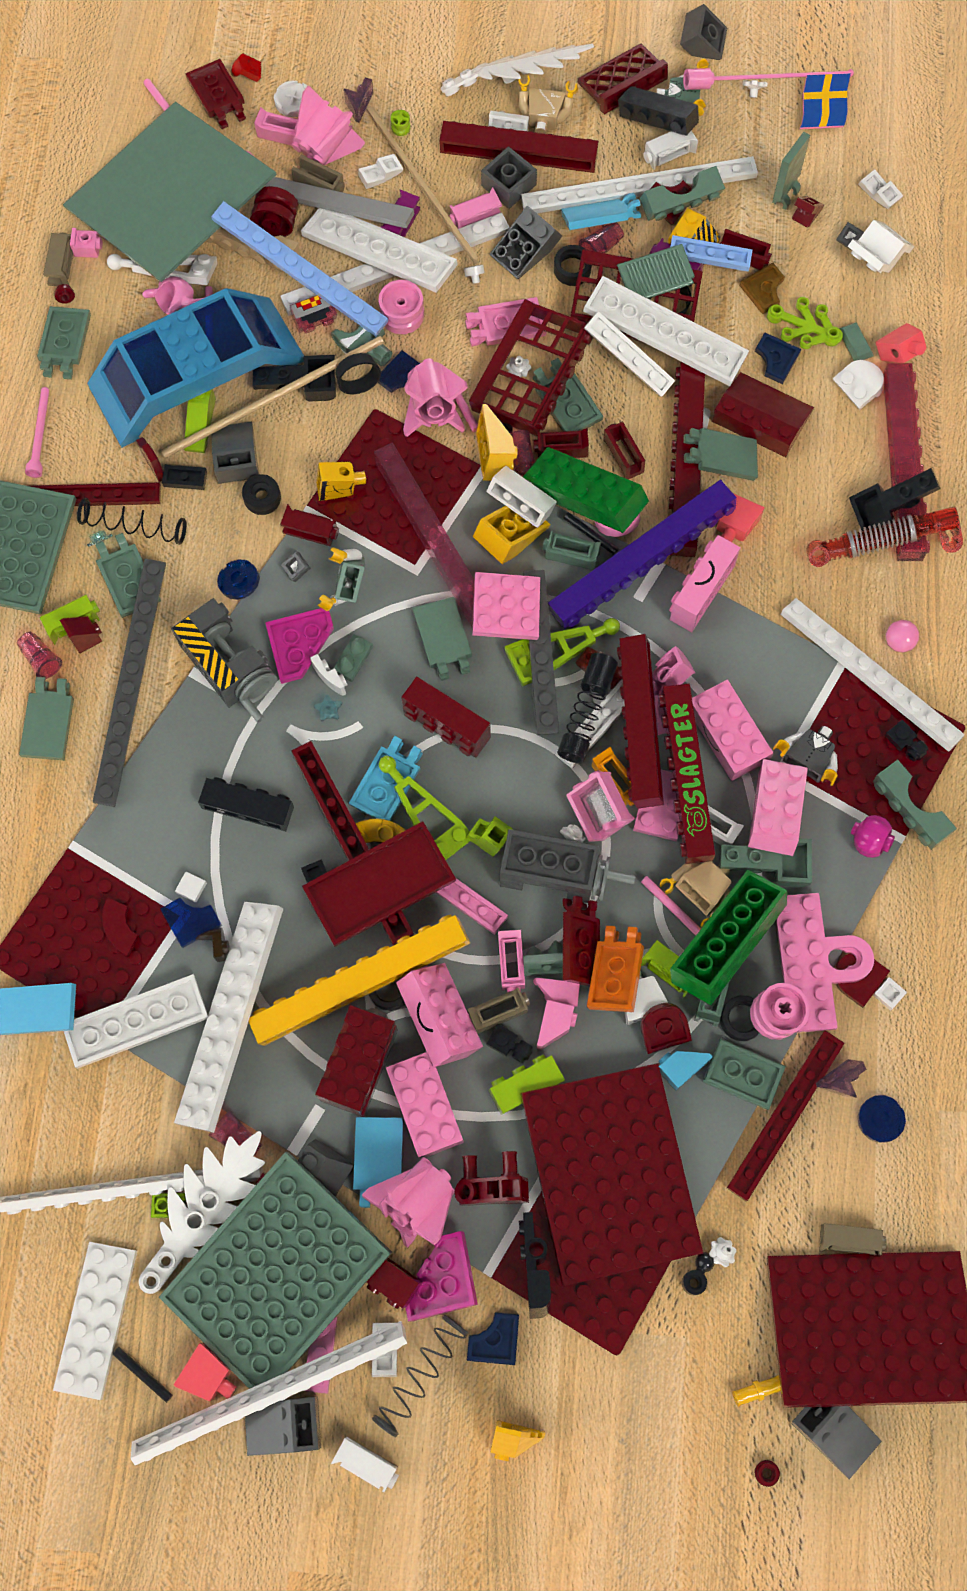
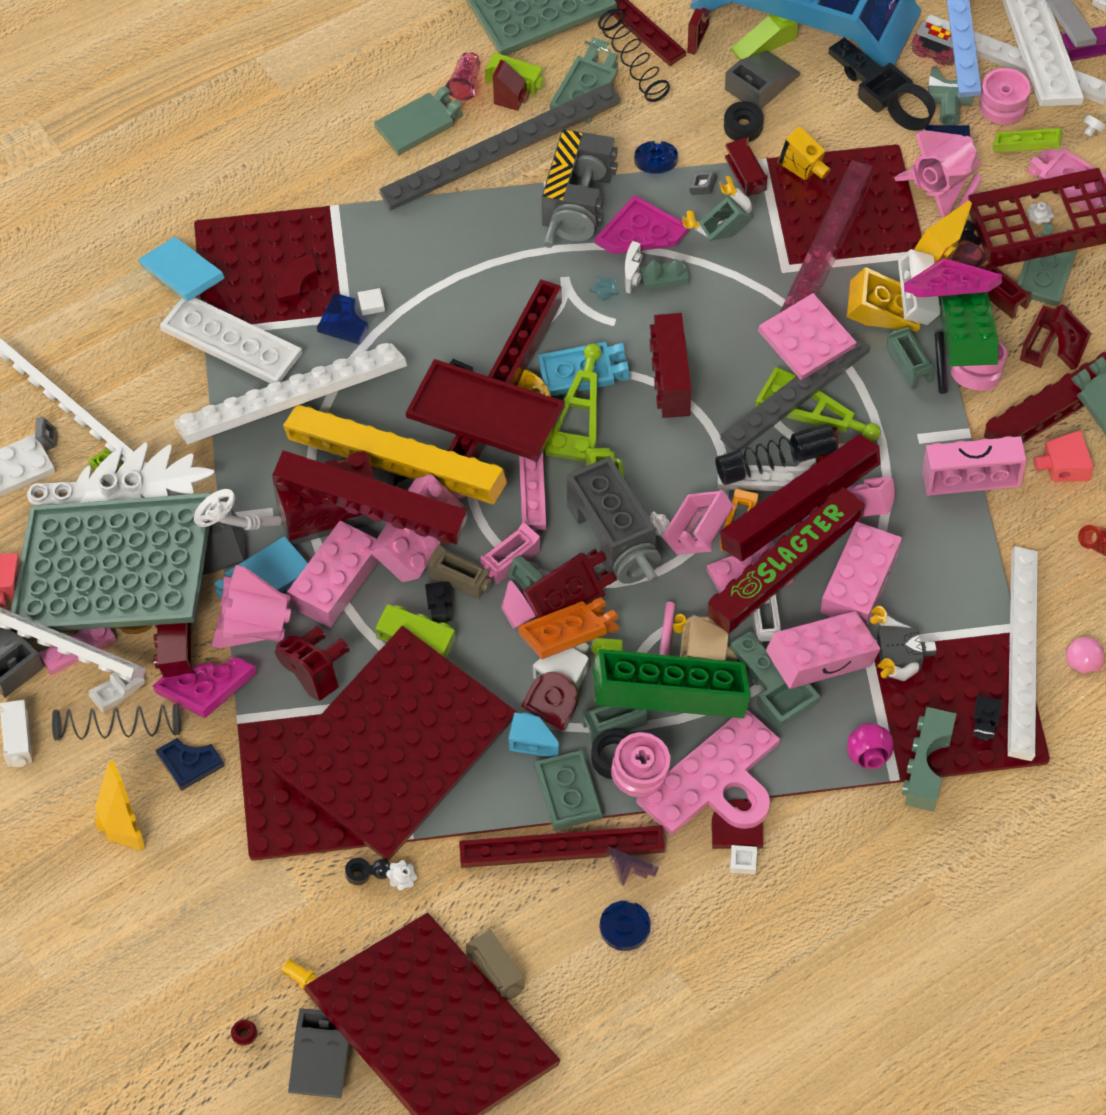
camera: 50 degrees right, 15 degrees down
(97, 1233) = (45, 433): none -> dark grey tile
(184, 477) = (706, 63): black plate -> none
(220, 945) = (341, 347): dark brown plate -> none
(231, 1127) = (204, 458): clear pink plant -> none
(246, 803) = (471, 288): black brick -> none
(267, 399) = (826, 65): tan piece -> none
(315, 1159) = (219, 511): none -> white dish
(402, 1037) = (369, 497): none -> dark red brick
(443, 635) = (740, 322): sand green tile -> none
(452, 323) = (1028, 140): none -> lime tile
(537, 1280) = (249, 747): black plate -> none
(545, 470) = (951, 278): none -> dark pink plate
(555, 1023) = (484, 620): bright pink slope -> none
(642, 432) = (1071, 336): none -> dark red tile
(642, 555) = (955, 405): dark purple brick -> none

